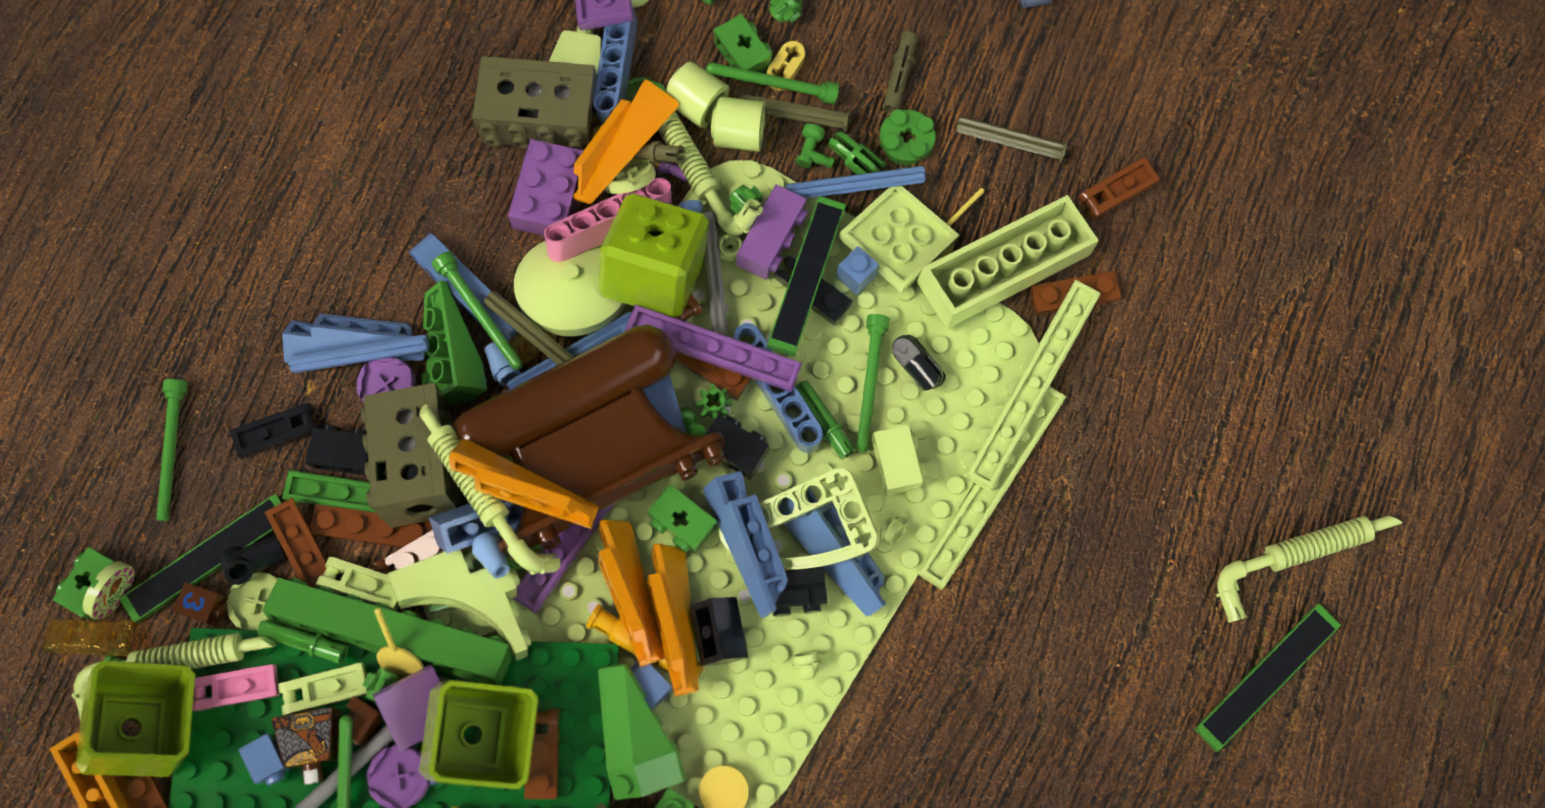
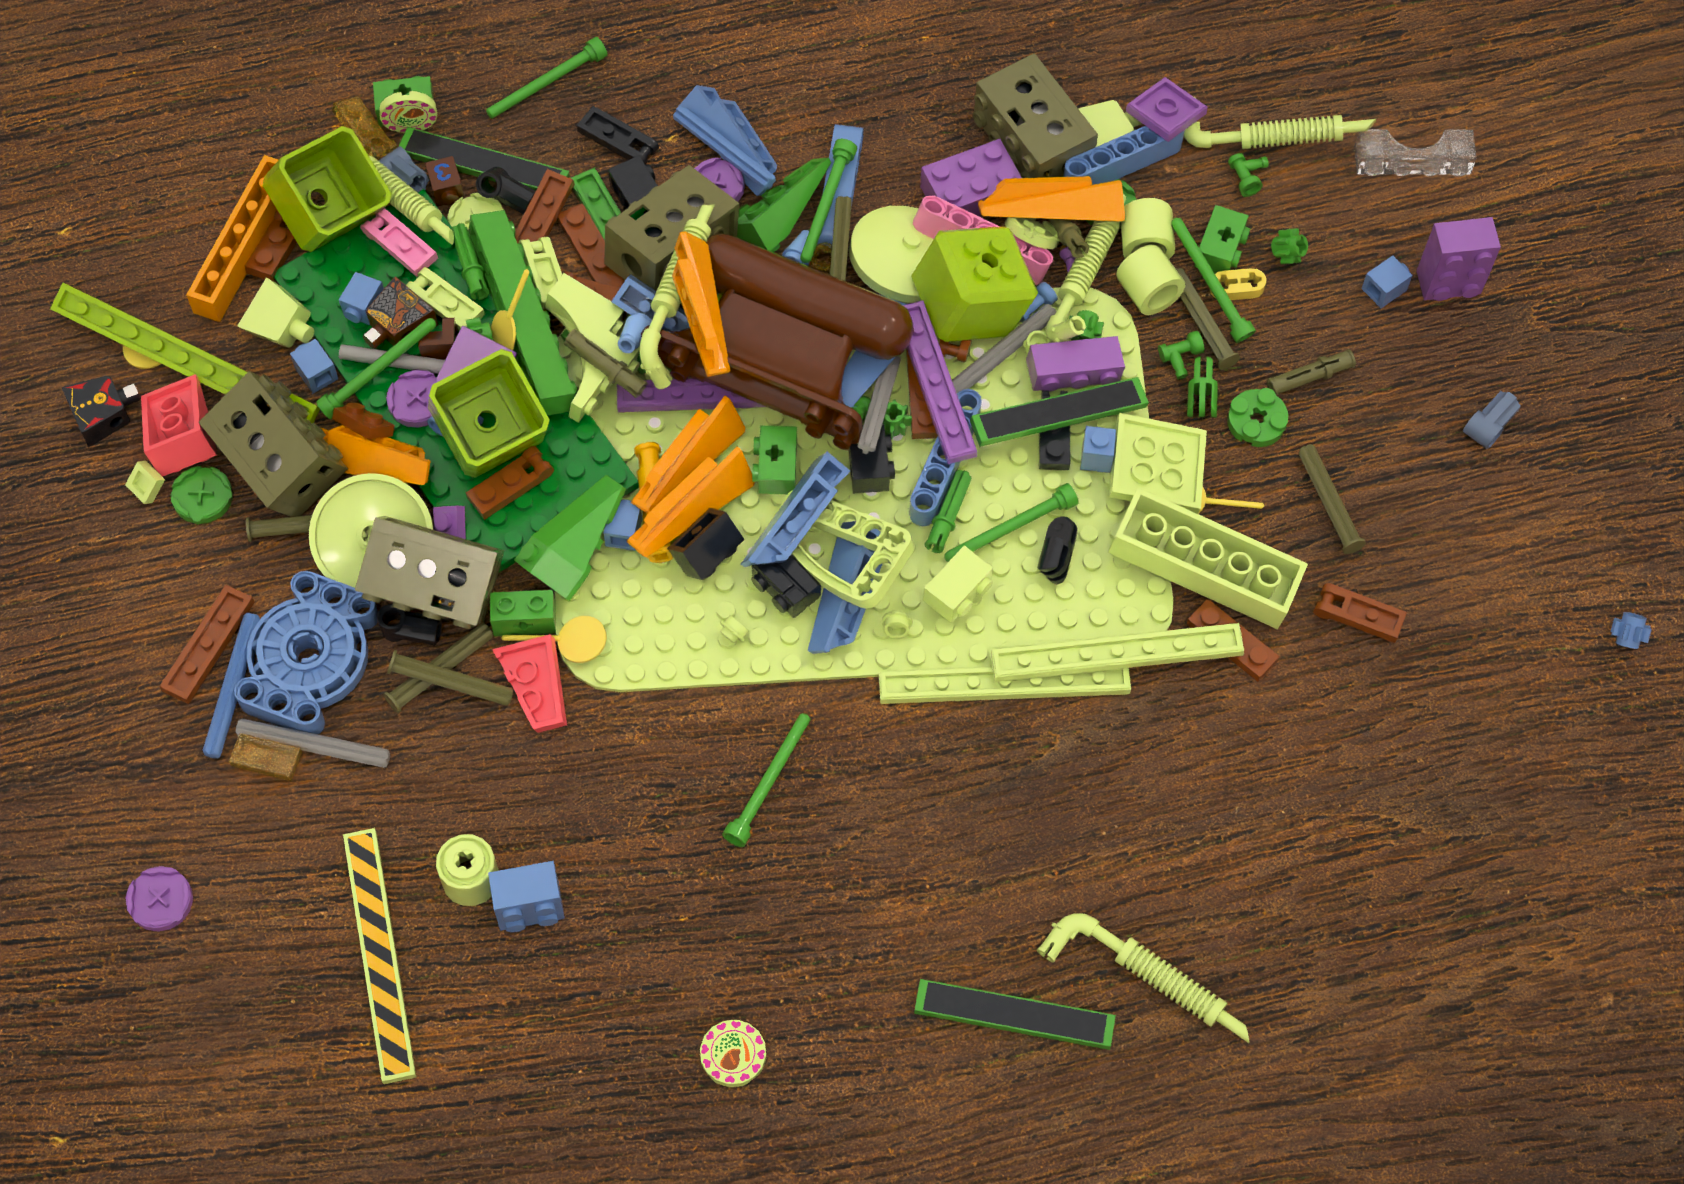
camera: 55 degrees right, 10 degrees down
(159, 632) = (402, 165): none -> sand blue piece
(495, 601) = (615, 371): none -> olive pin
(708, 412) = (878, 407): none -> light grey axle
(858, 182) = (1177, 400): medium blue axle -> none
(977, 779) = (738, 830): none -> bright green piece
(1264, 21) = (1631, 630): none -> medium blue gear

